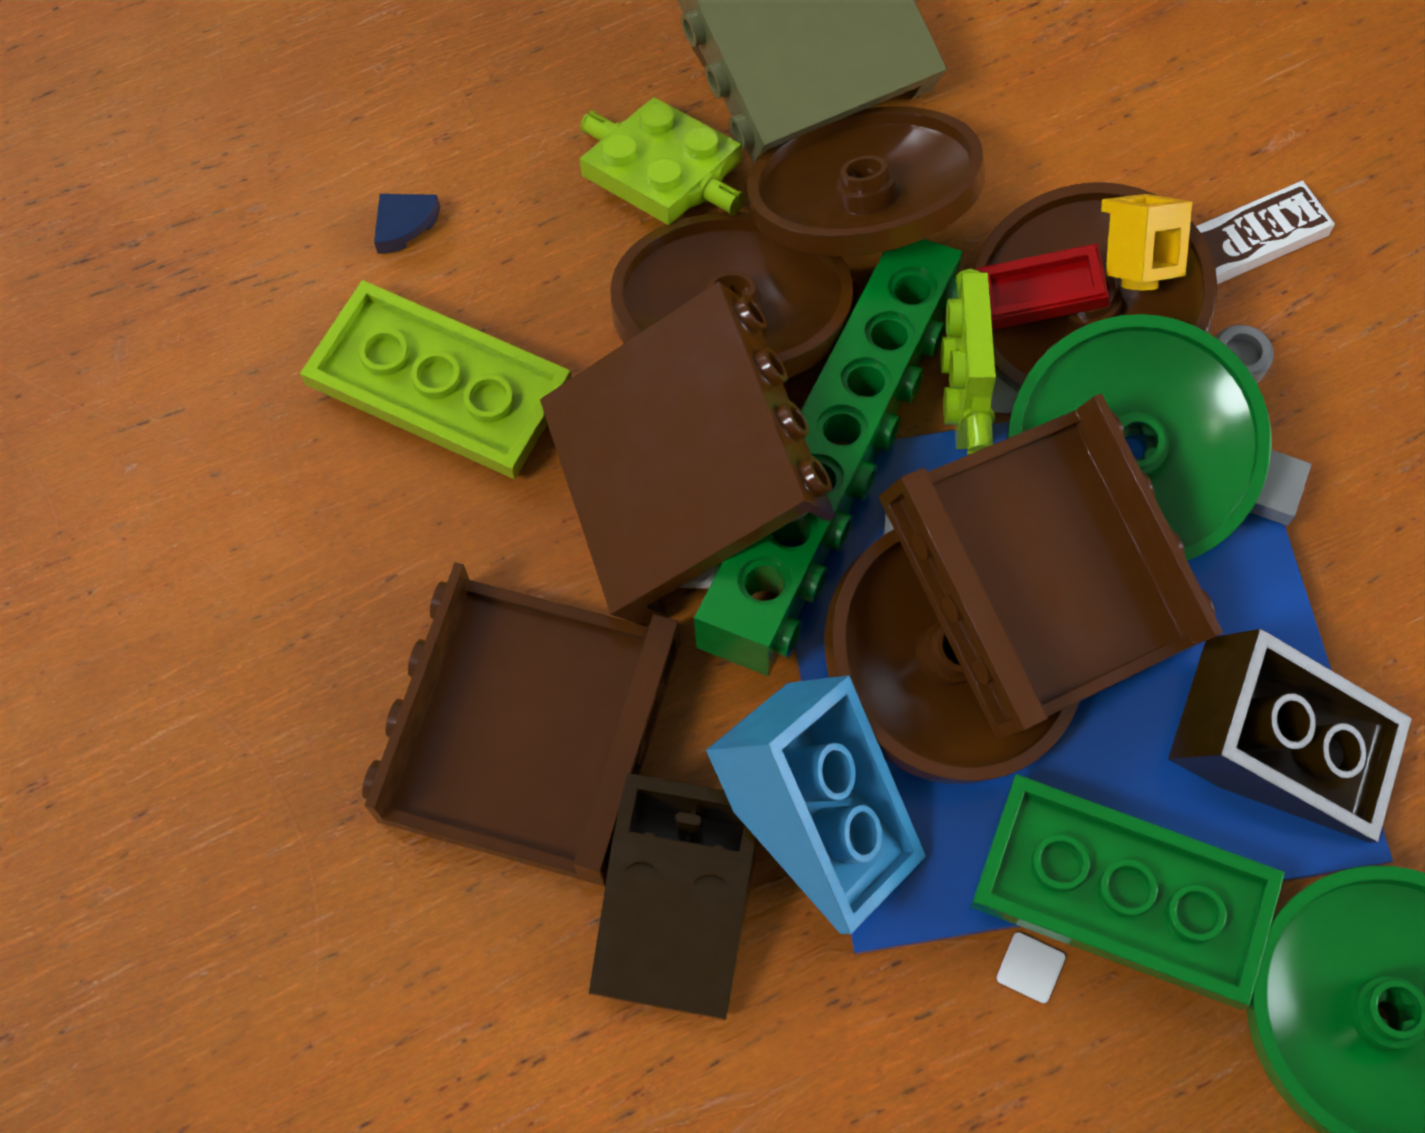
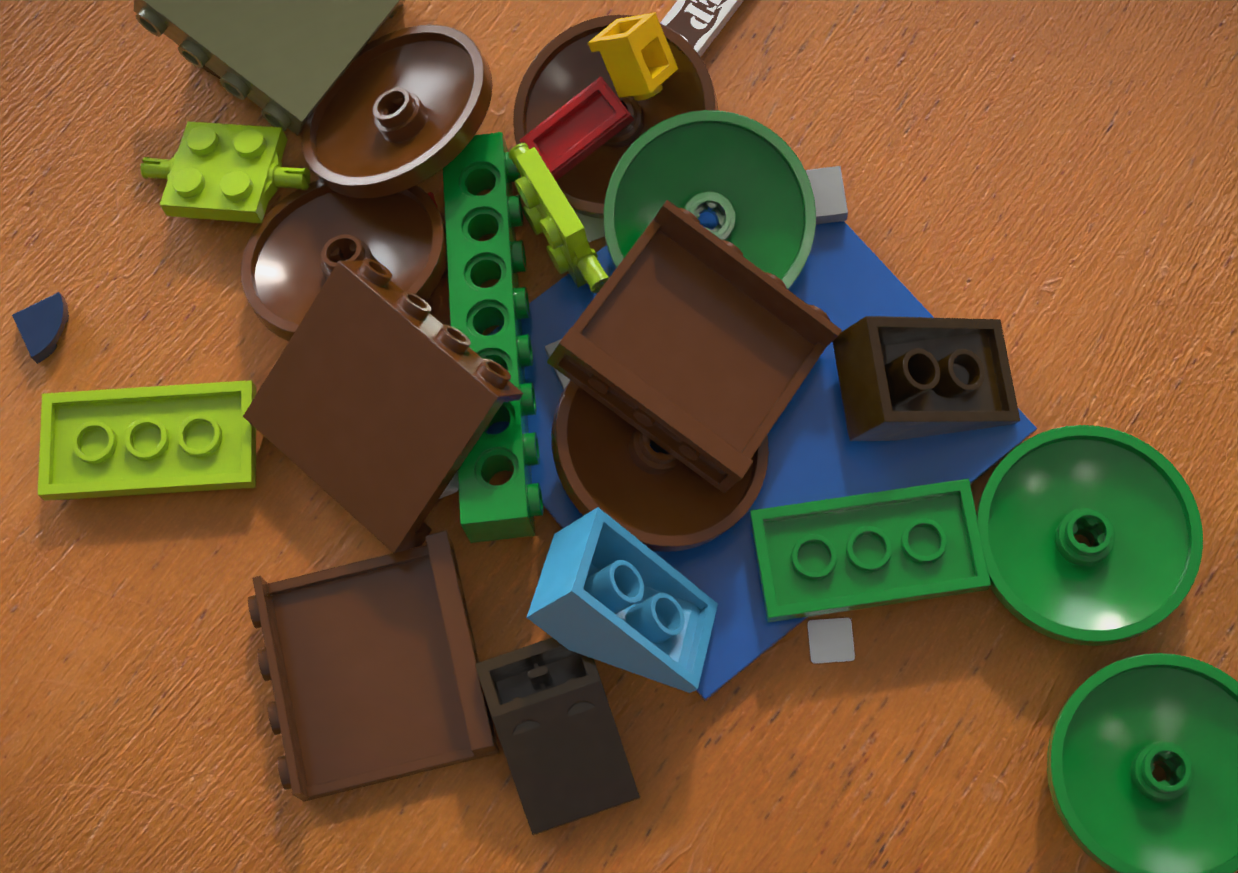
camera: 25 degrees left, 5 degrees up
(1250, 347) = (750, 99): light grey tile -> none

